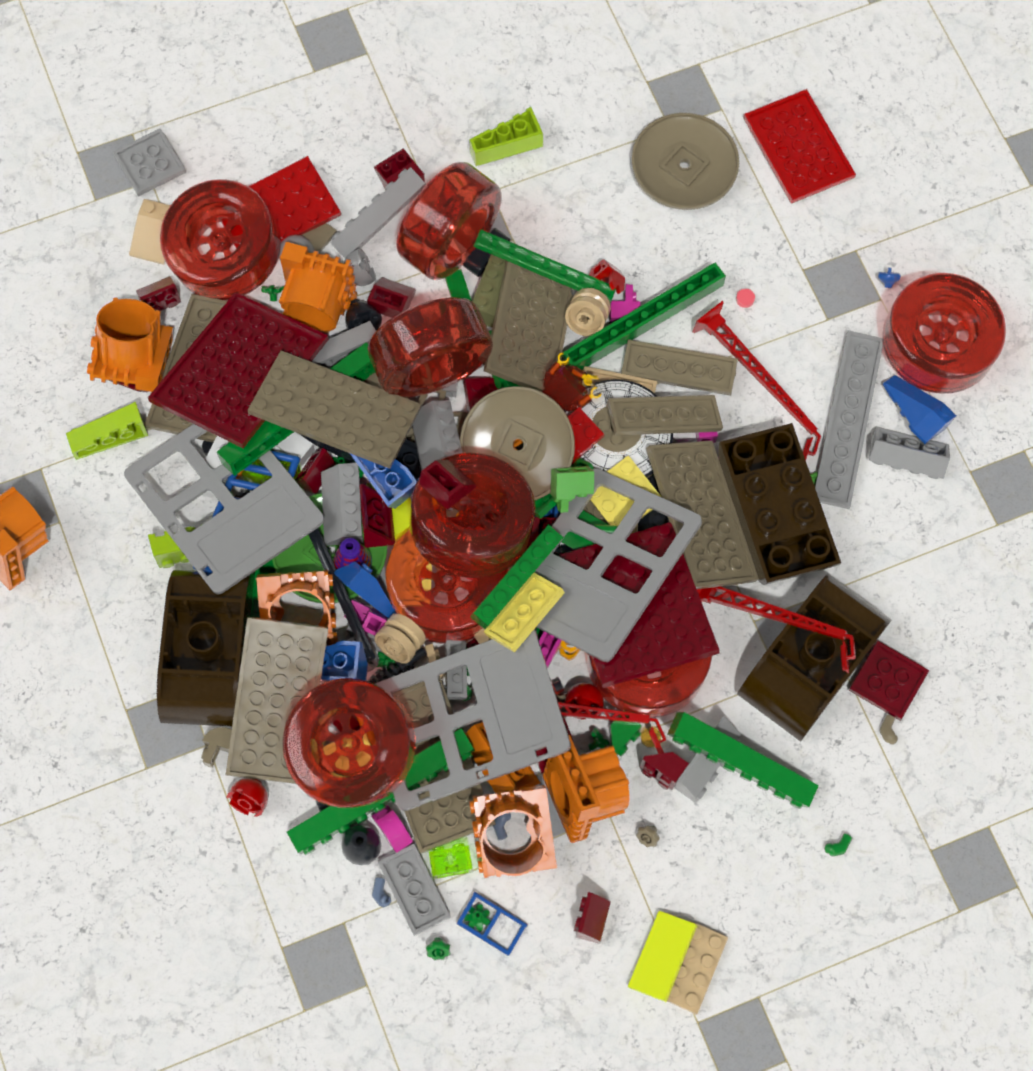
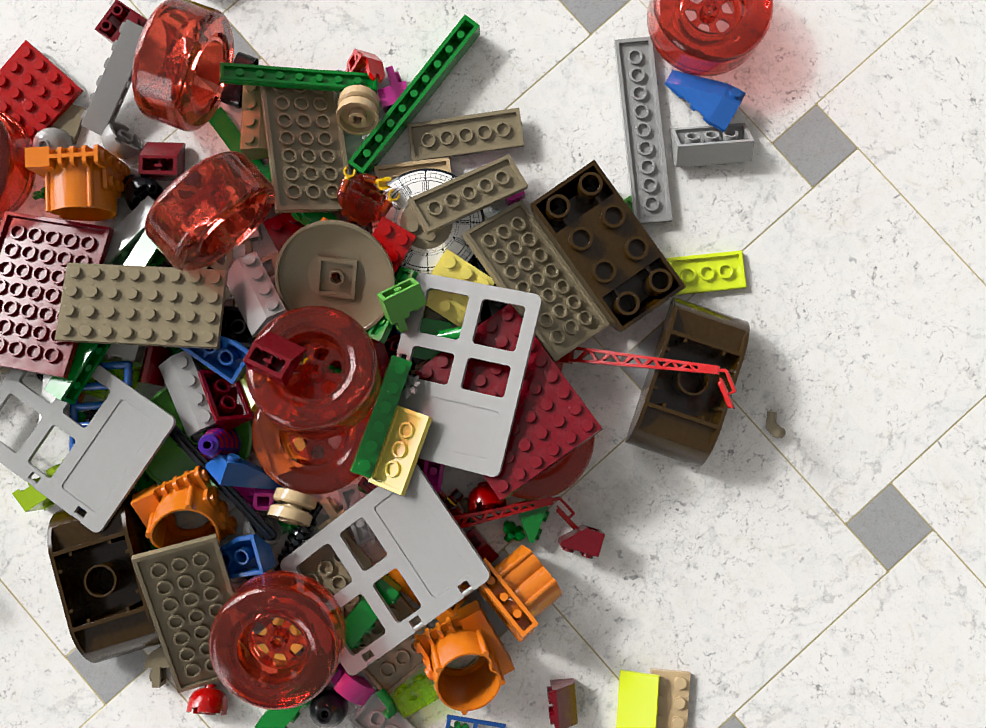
camera: 15 degrees left, 15 degrees up
(423, 856) = (388, 702): none -> green arm
(553, 562) = (411, 387): none -> light grey plant
(646, 739) = (552, 509): clear yellow tile -> none
(648, 836) = (587, 605): dark tan piece -> none
(701, 770) = (619, 515): light grey slope -> none
(711, 323) = (482, 77): red piece -> none
(742, 759) = (650, 511): green brick -> none
(745, 298) = (505, 40): coral tile -> none
(838, 848) = (764, 553): green arm -> none
(870, 568) = (710, 272): none -> neon yellow tile
(889, 680) = (764, 379): dark red plate -> none

